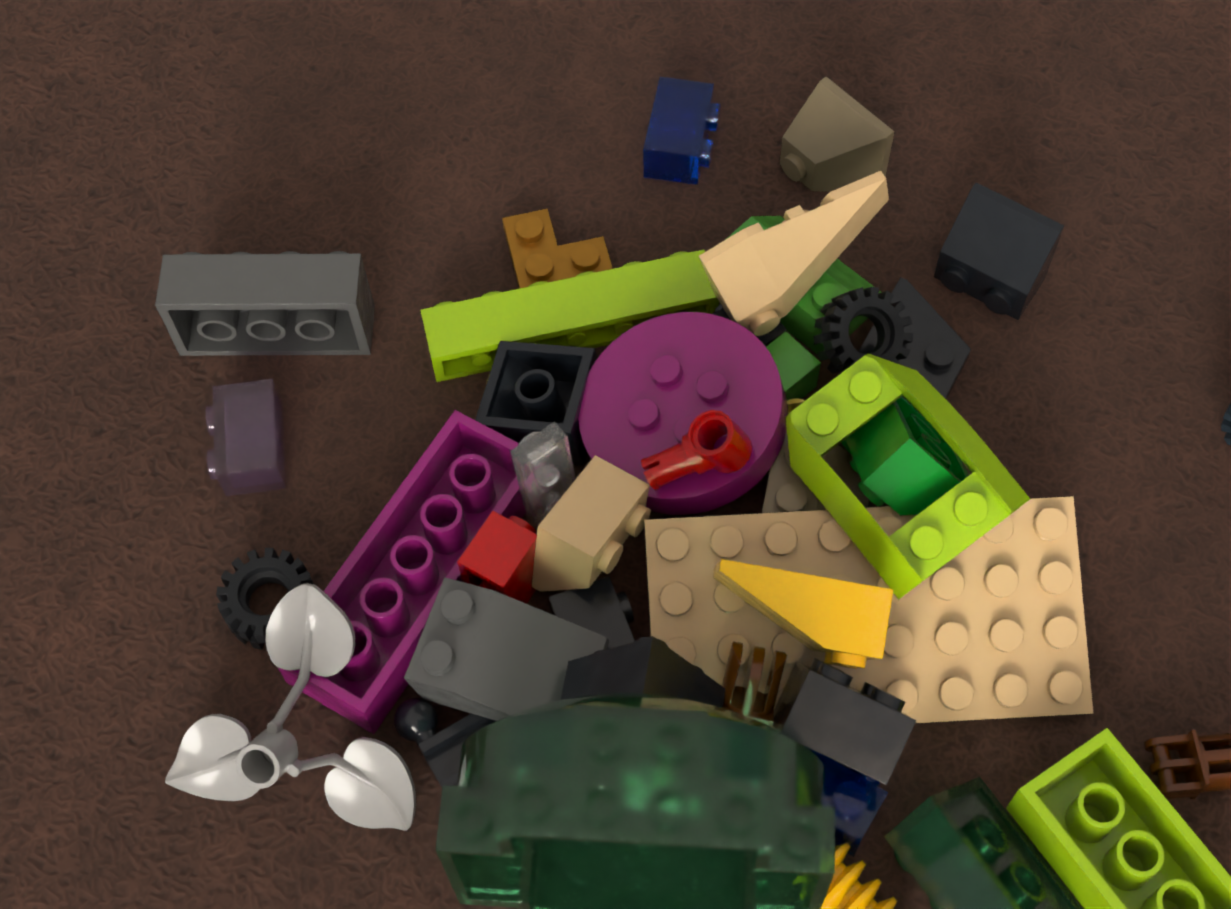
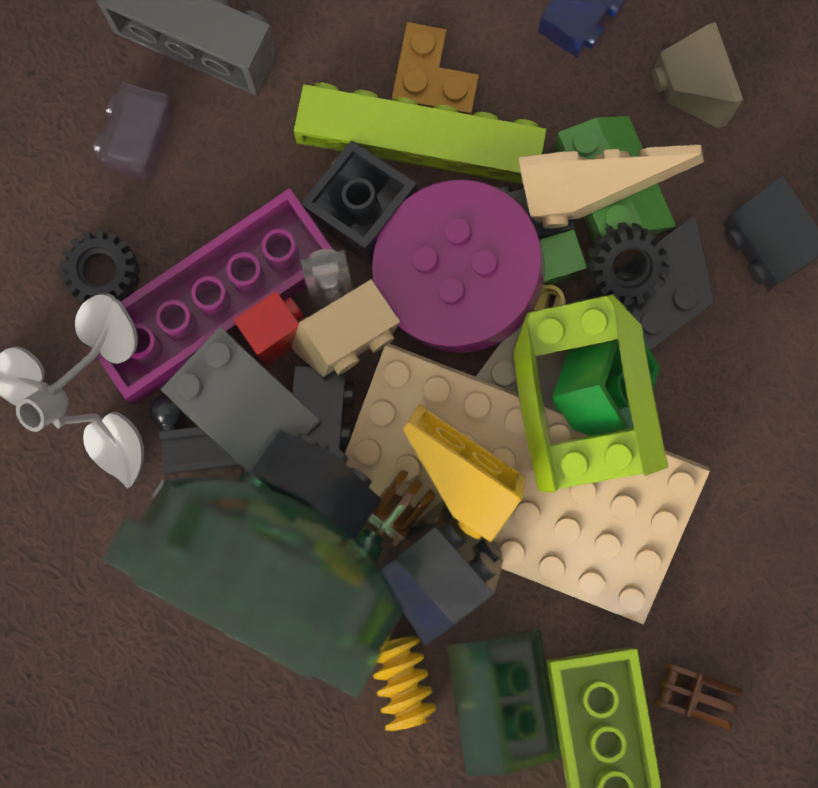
camera: 25 degrees right, 20 degrees up
(697, 452) = (444, 315): red pin -> none

